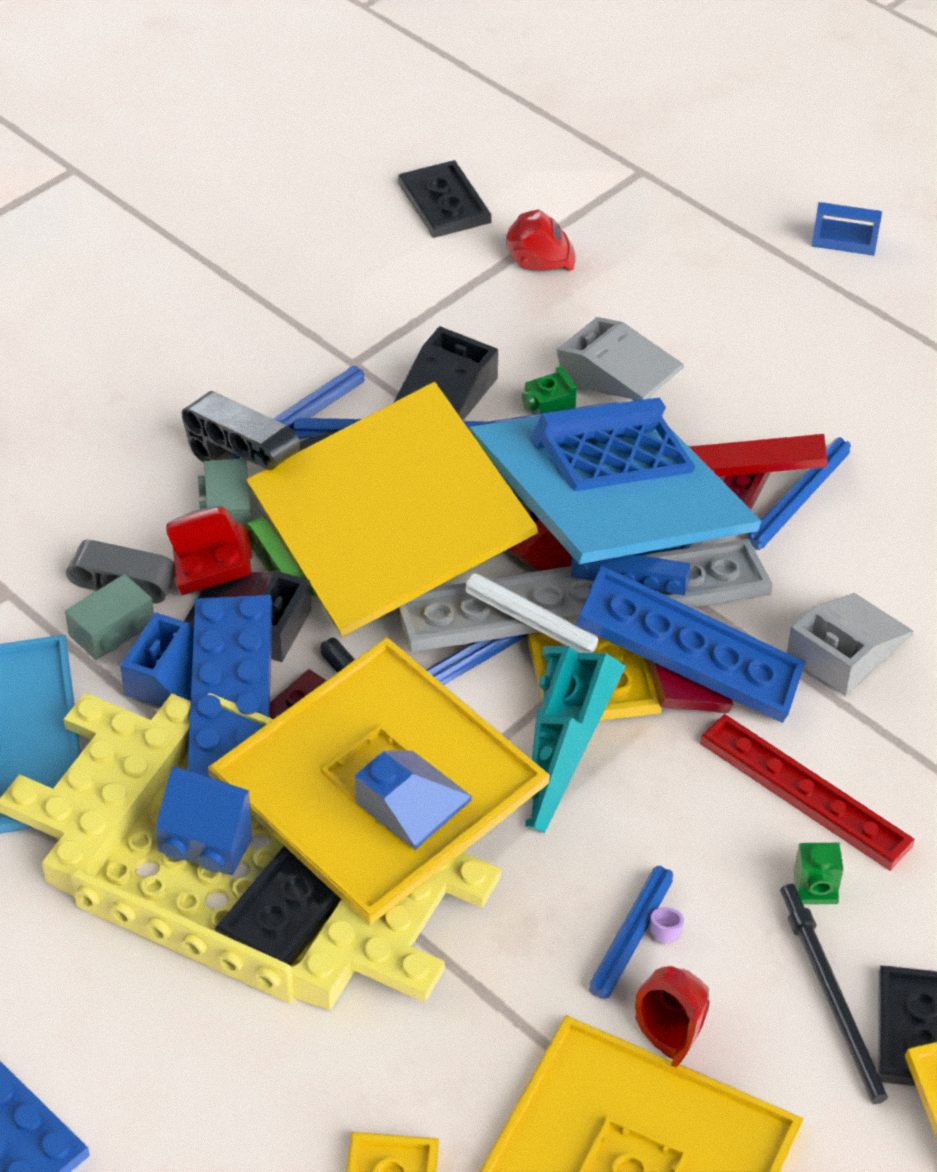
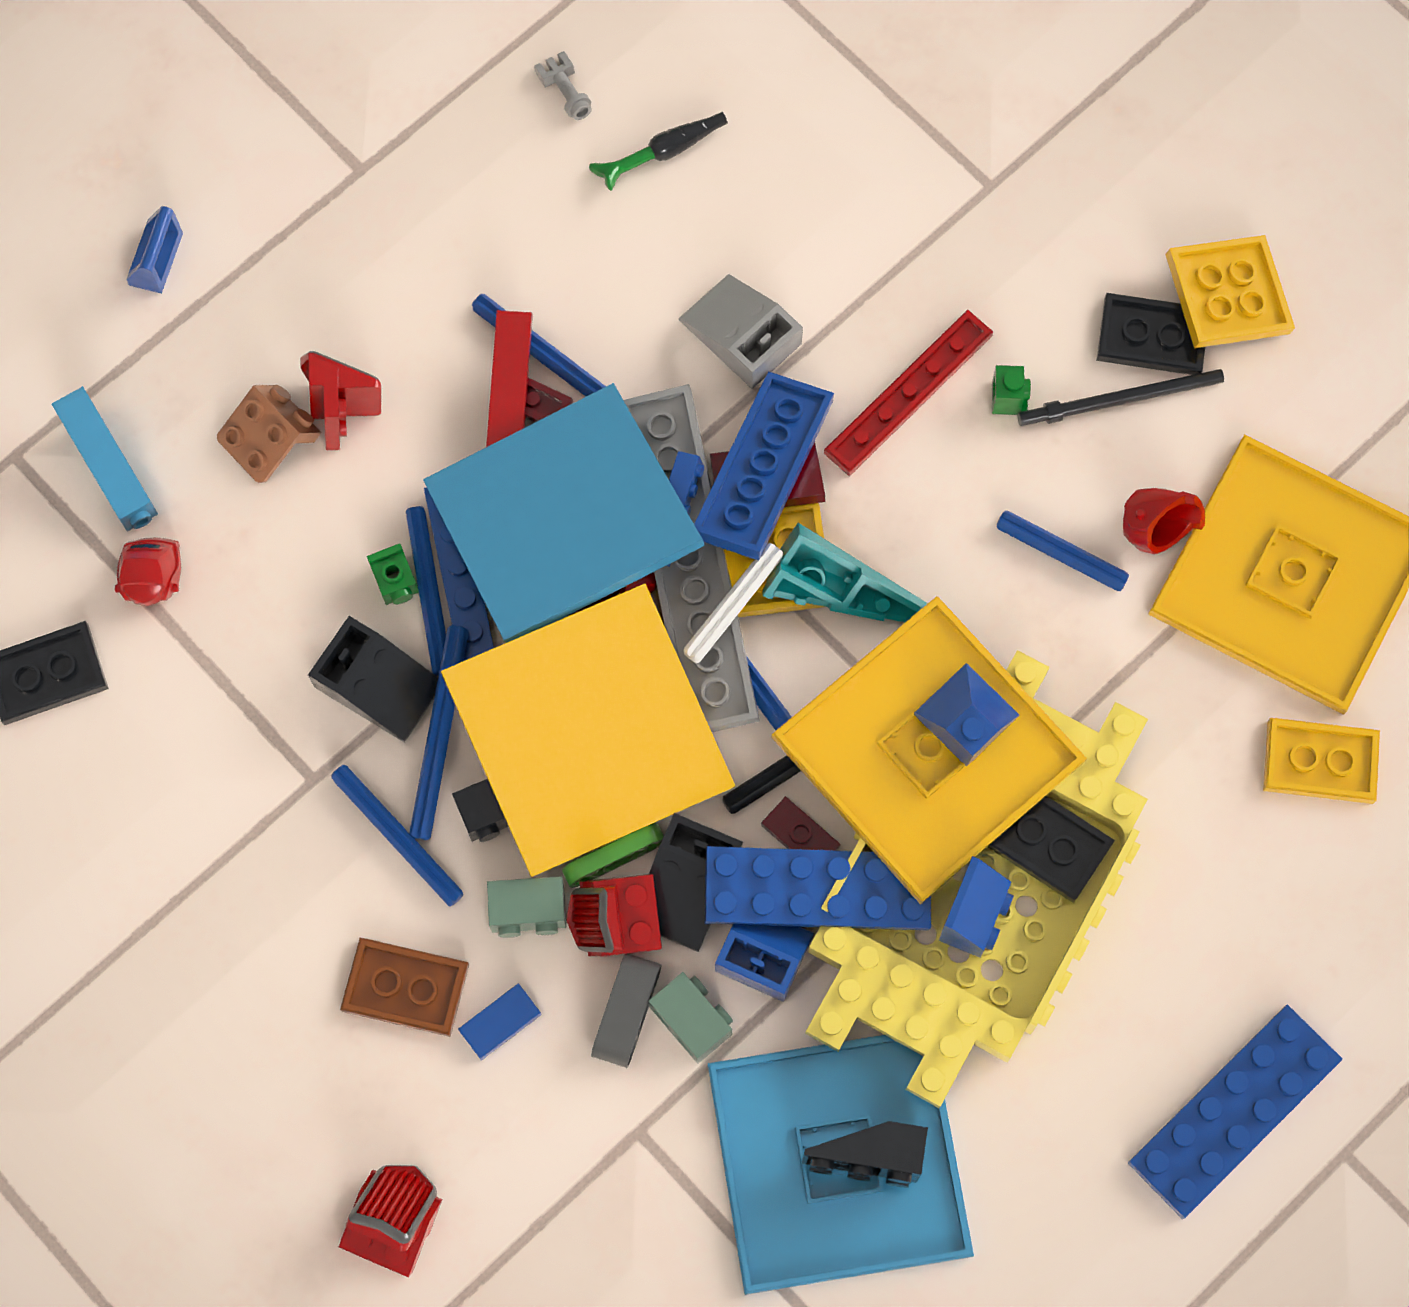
camera: 85 degrees left, 25 degrees up
(119, 489) = (499, 1021): none -> blue tile
(153, 428) = (404, 987): none -> dark orange tile
(222, 424) = (467, 882): black beam -> none
(605, 424) = (498, 509): blue fence -> none
(616, 360) = (365, 498): light grey slope -> none
(640, 206) = (105, 459): none -> dark azure slope
(666, 924) = (1053, 520): lavender hinge -> none
(692, 308) = (265, 430): none -> nougat bracket
(715, 336) = (339, 392): none -> red piece

